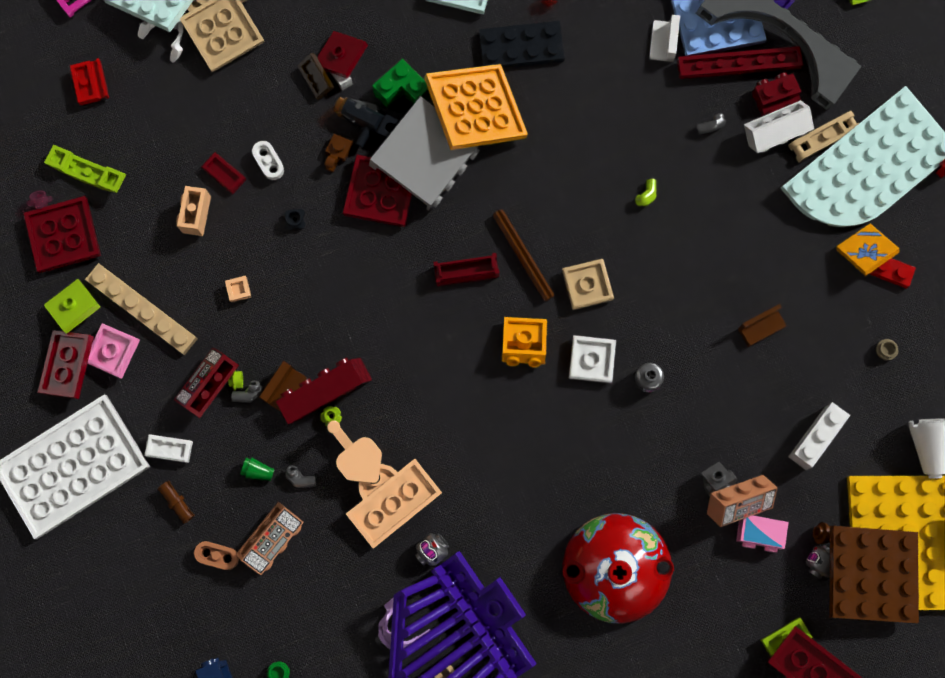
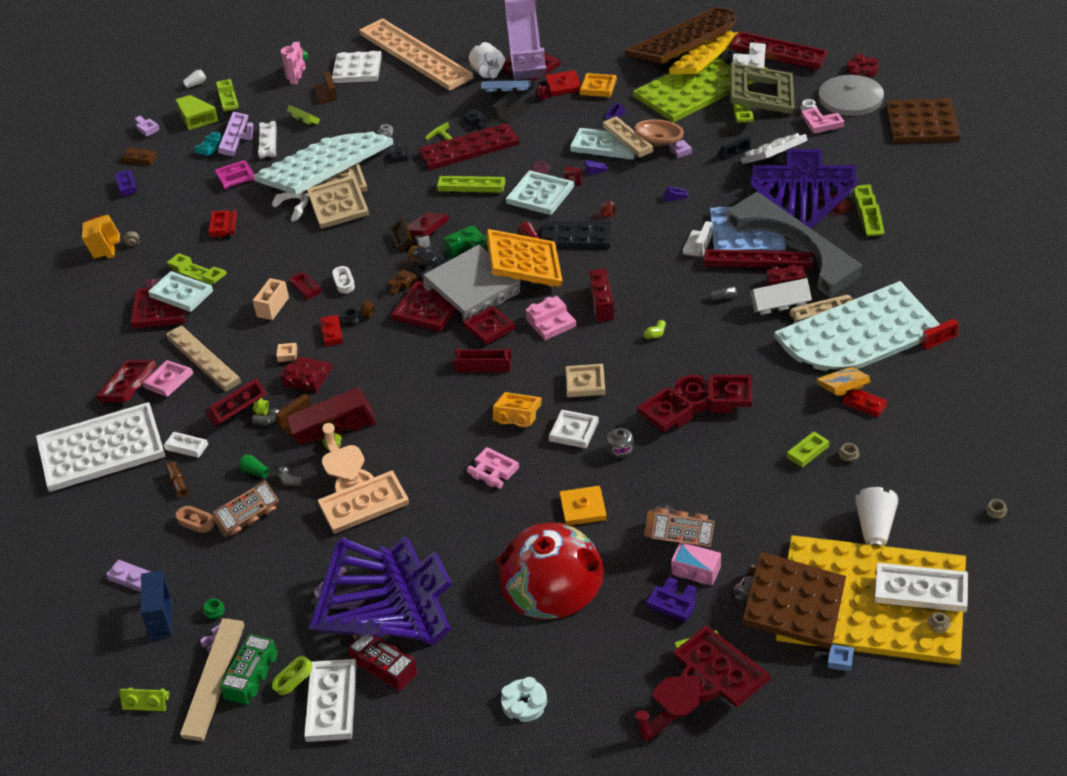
camera: 15 degrees right, 35 degrees down
(72, 306) = (148, 346): lime plate -> none
(81, 216) = (180, 291): none -> light aqua plate
(171, 642) = (126, 575): none -> lavender plate
(270, 318) = (305, 374): none -> dark red plate
(278, 243) = (331, 330): none -> red plate
(311, 206) = (367, 309): none -> reddish brown plate
(432, 549) = (384, 535): flat silver head -> none
(459, 212) = (489, 325): none -> dark red plate
(466, 53) = (527, 229): none -> dark red cone
(522, 424) = (496, 464): none -> bright pink plate
(523, 255) = (535, 358): reddish brown axle -> none
(525, 190) = (550, 317): none -> bright pink plate
(576, 148) = (601, 295): none -> dark red brick
(626, 466) = (583, 505): none -> light orange plate
(738, 287) = (695, 395): none -> dark red plate
(748, 588) = (671, 604): none -> dark purple plate
(762, 326) = (734, 421): reddish brown panel -> none
(819, 436) = (767, 501): white brick -> none
(845, 352) = (808, 449): none -> lime plate
(925, 628) = (840, 657): none -> medium blue plate

